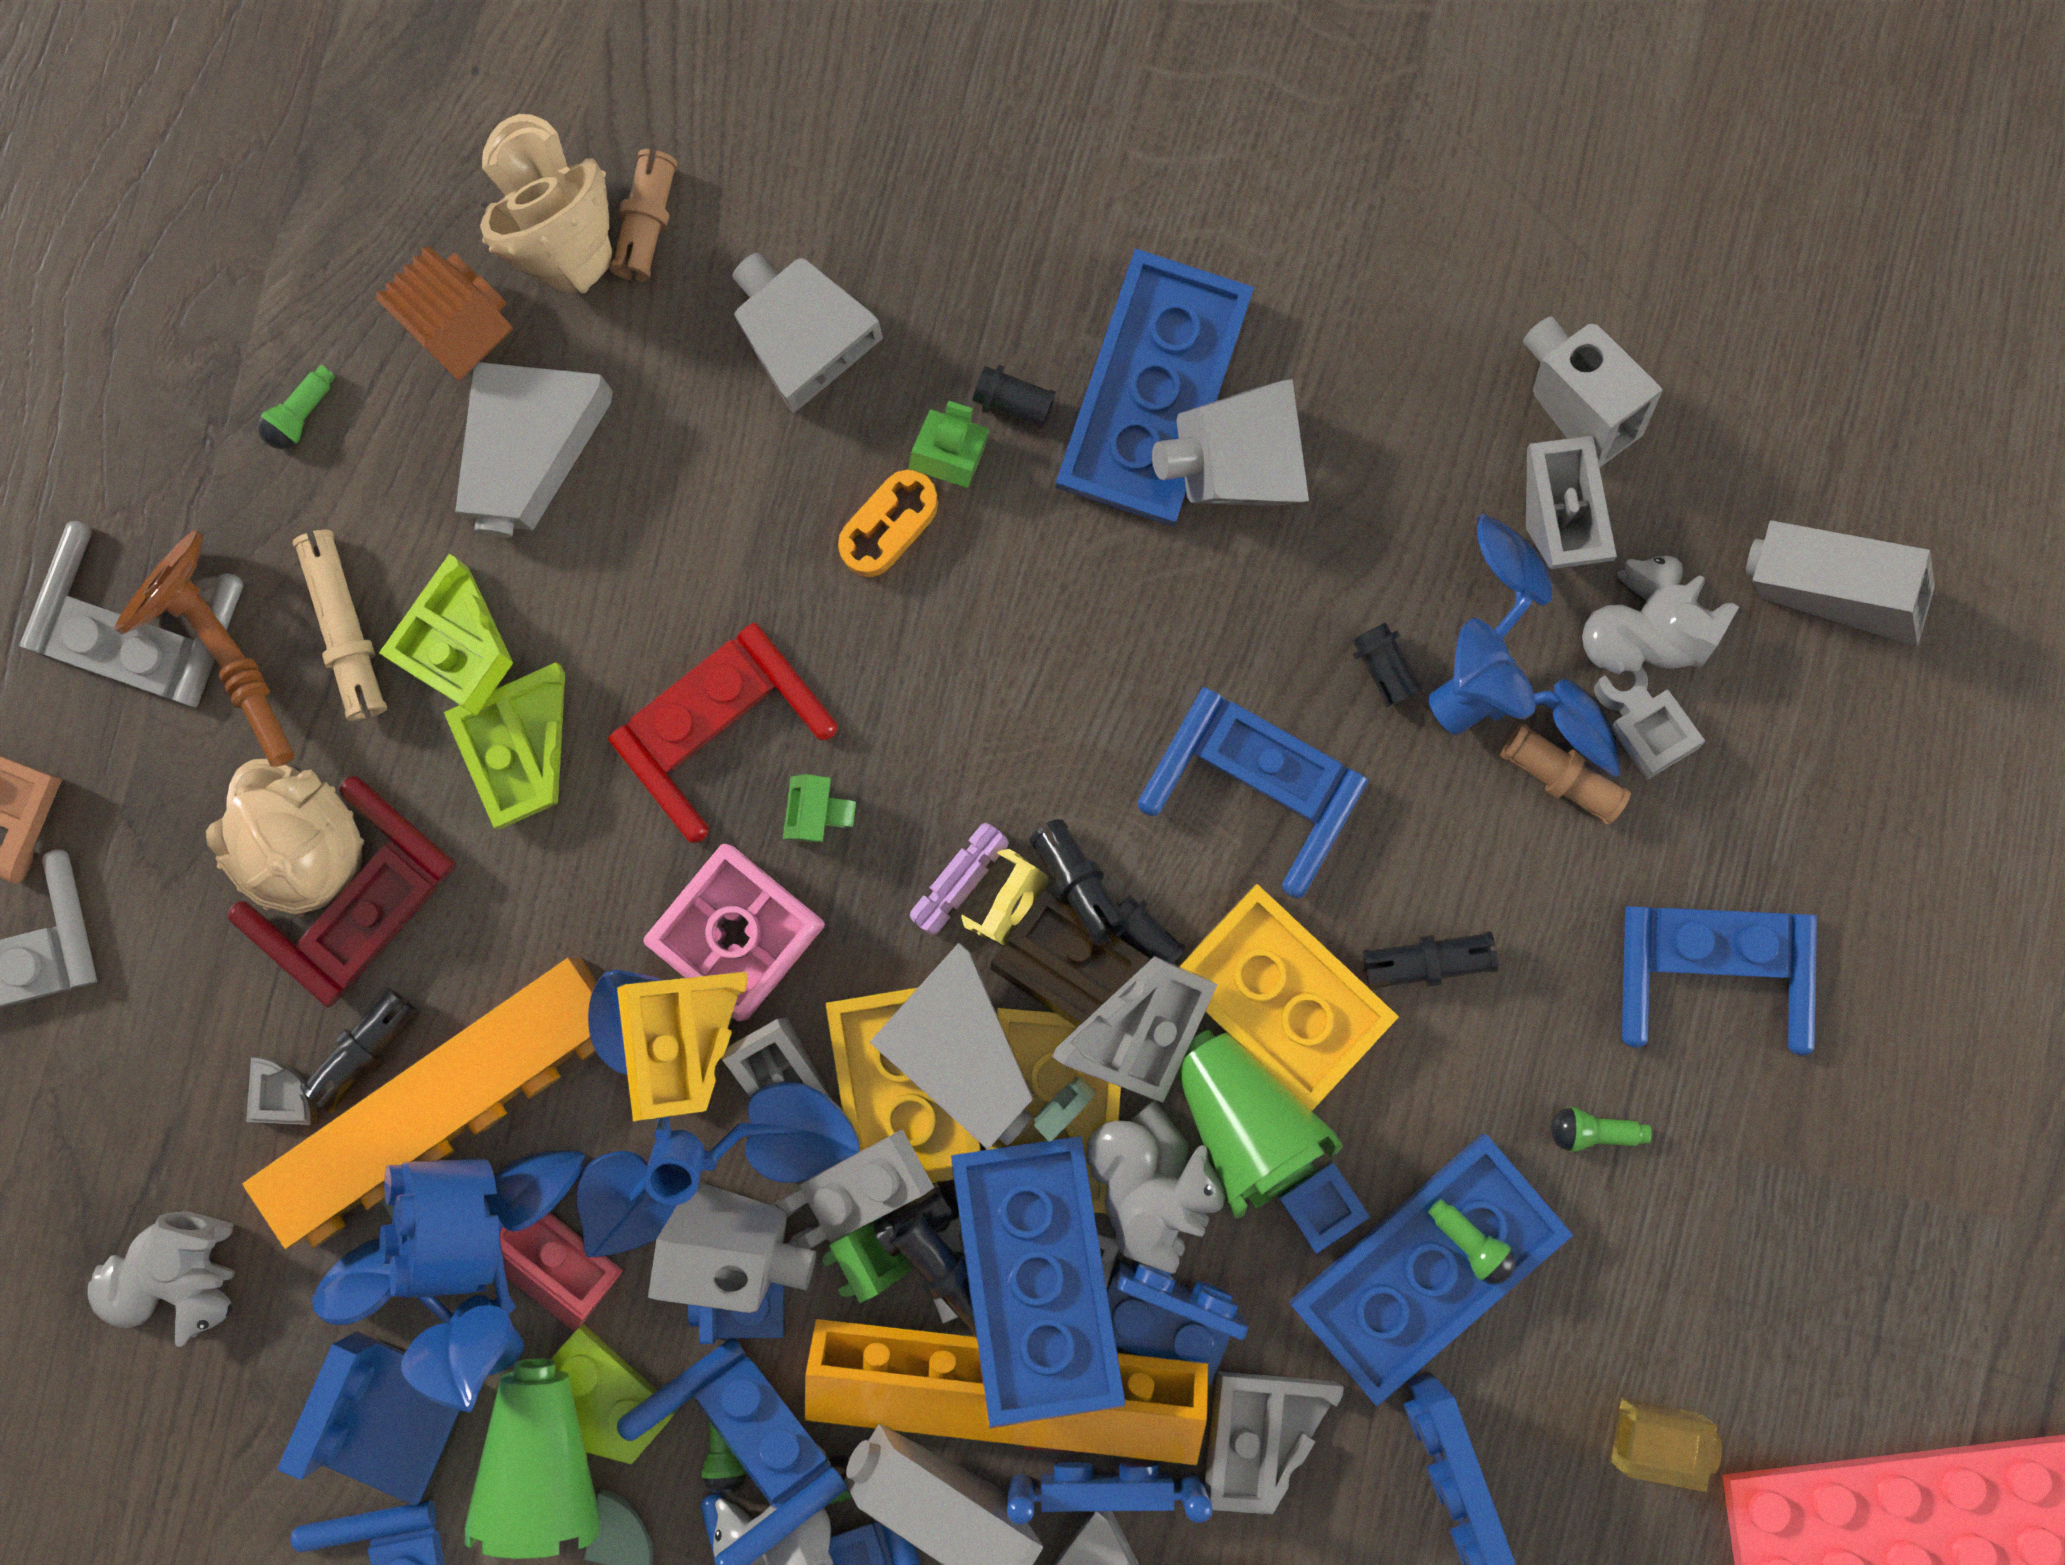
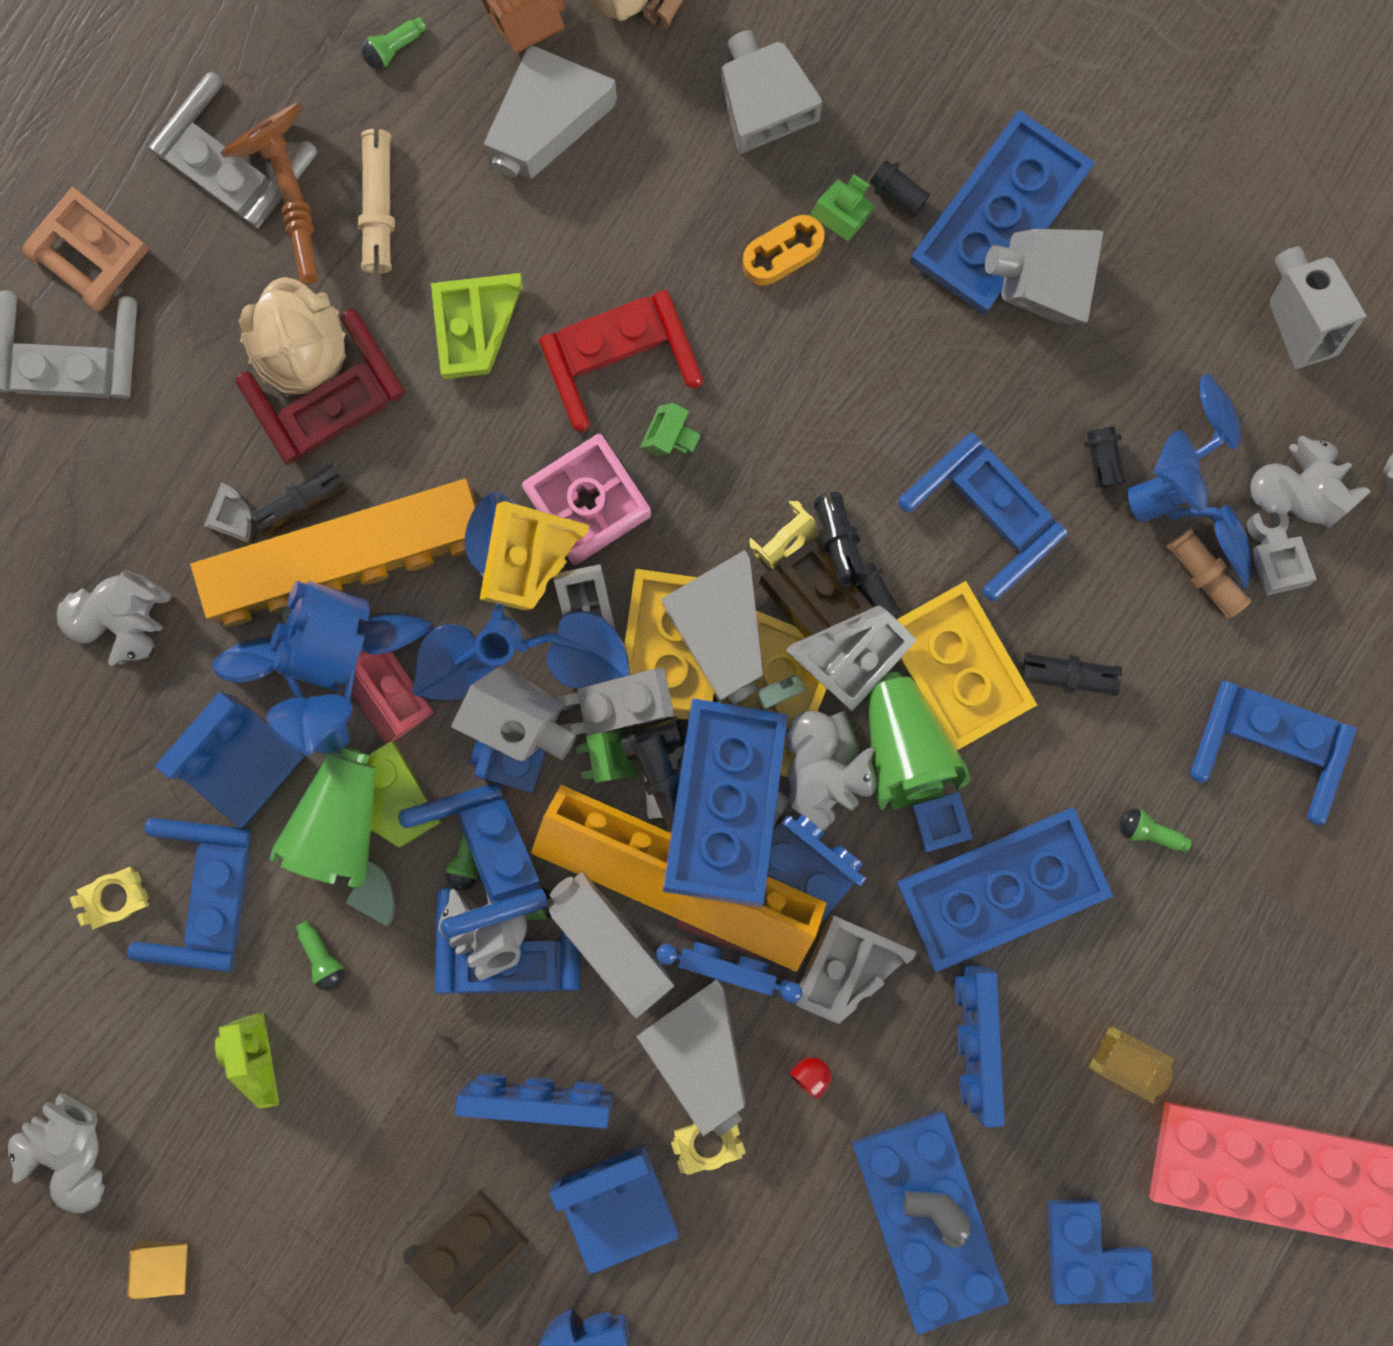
camera: 15 degrees right, 0 degrees up
(451, 639) = (451, 234): lime wing -> none
(959, 879) = (755, 513): lavender axle -> none
(1489, 1258) = (1048, 891): bright green piece -> none
(1567, 503) = (1271, 380): light grey slope -> none

